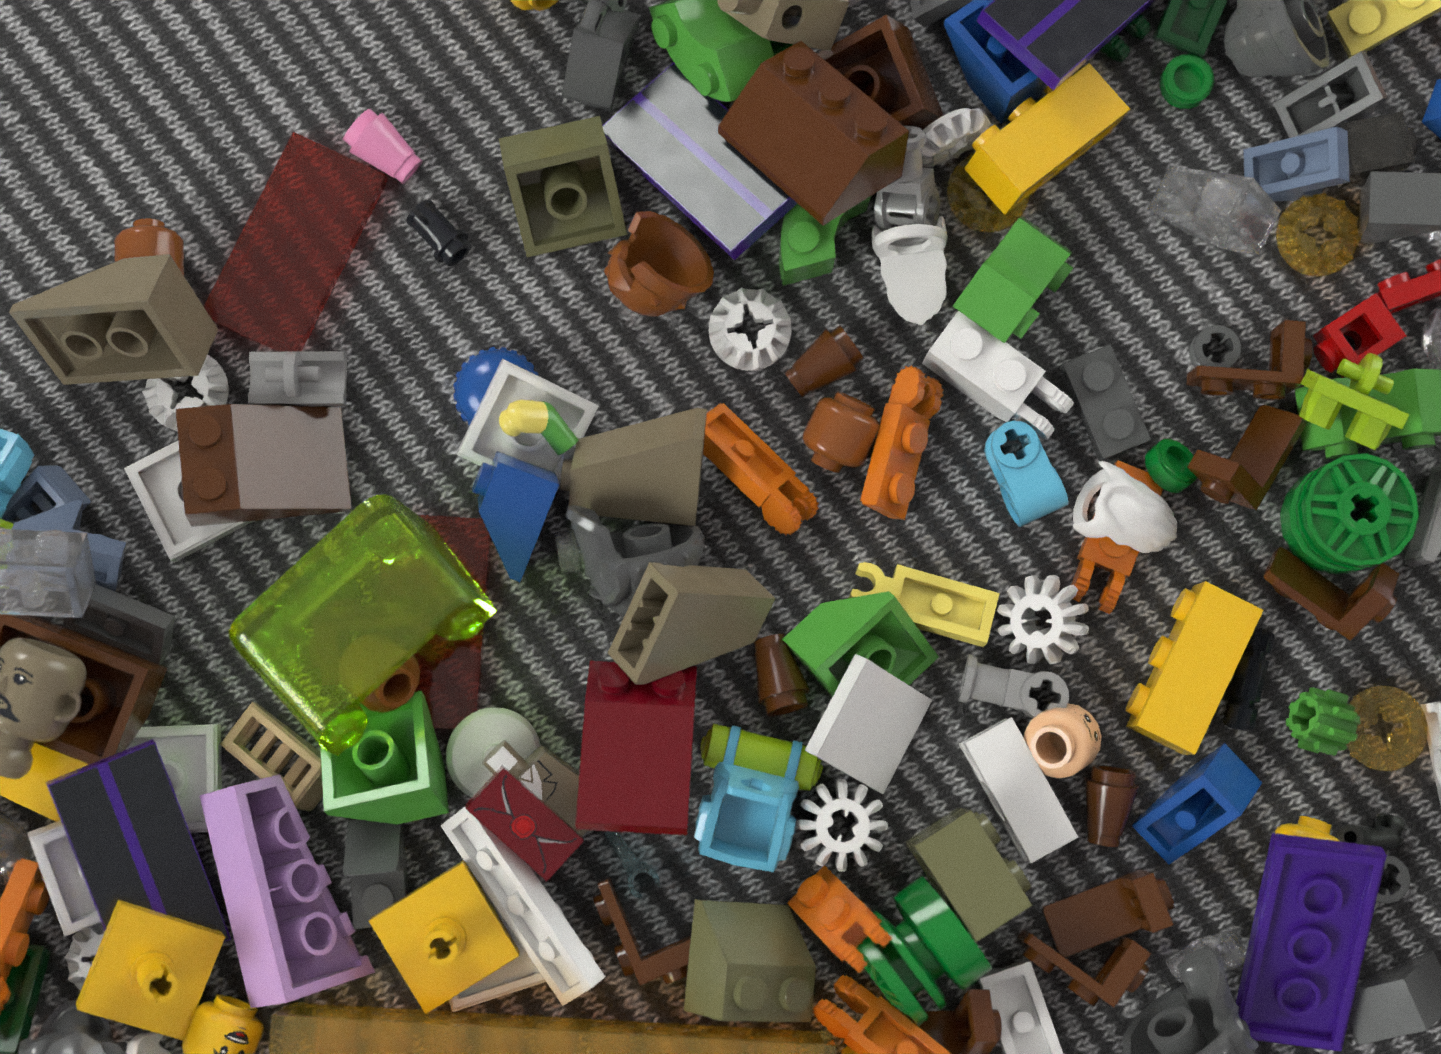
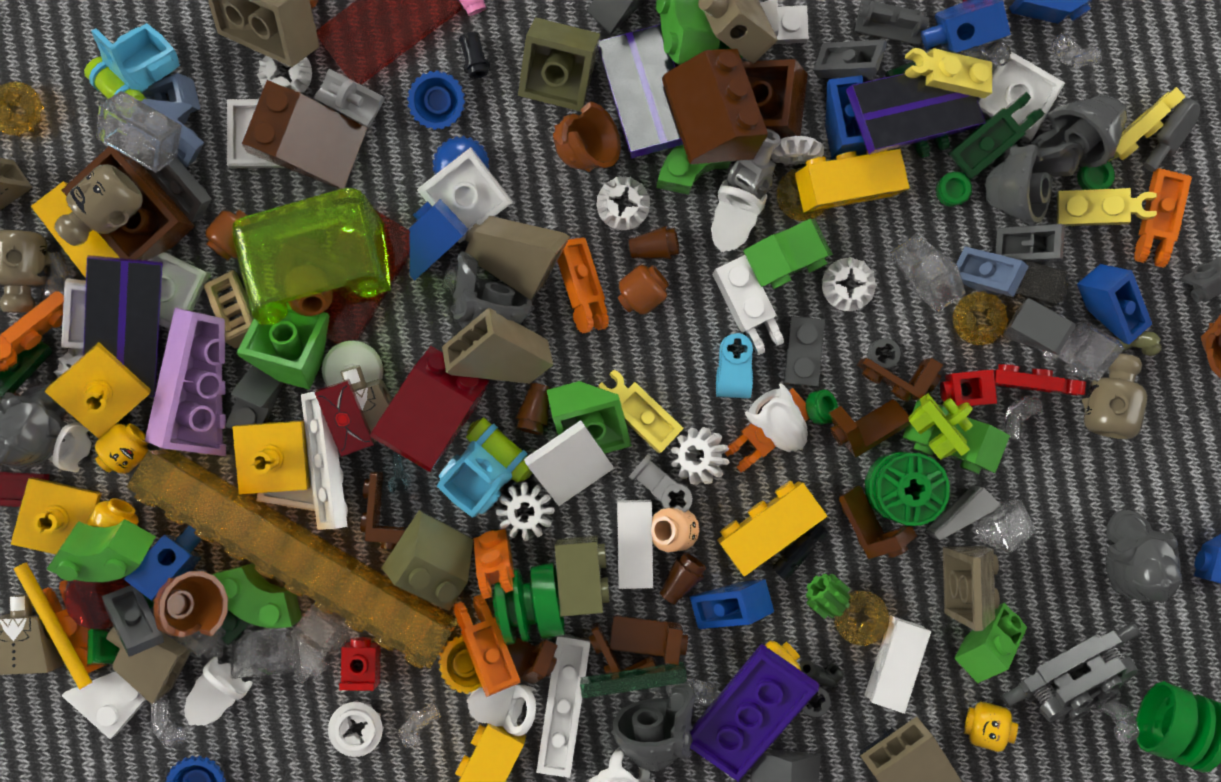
camera: 30 degrees right, 5 degrees up
(217, 659) = (220, 234): none -> dark orange head
(419, 319) = (436, 100): none -> blue hat
(539, 418) = (471, 191): arm -> none
(901, 443) = (674, 313): orange hinge -> none
(1110, 302) = (838, 295): none -> white gear
(1123, 979) = (633, 680): none -> clear green tile

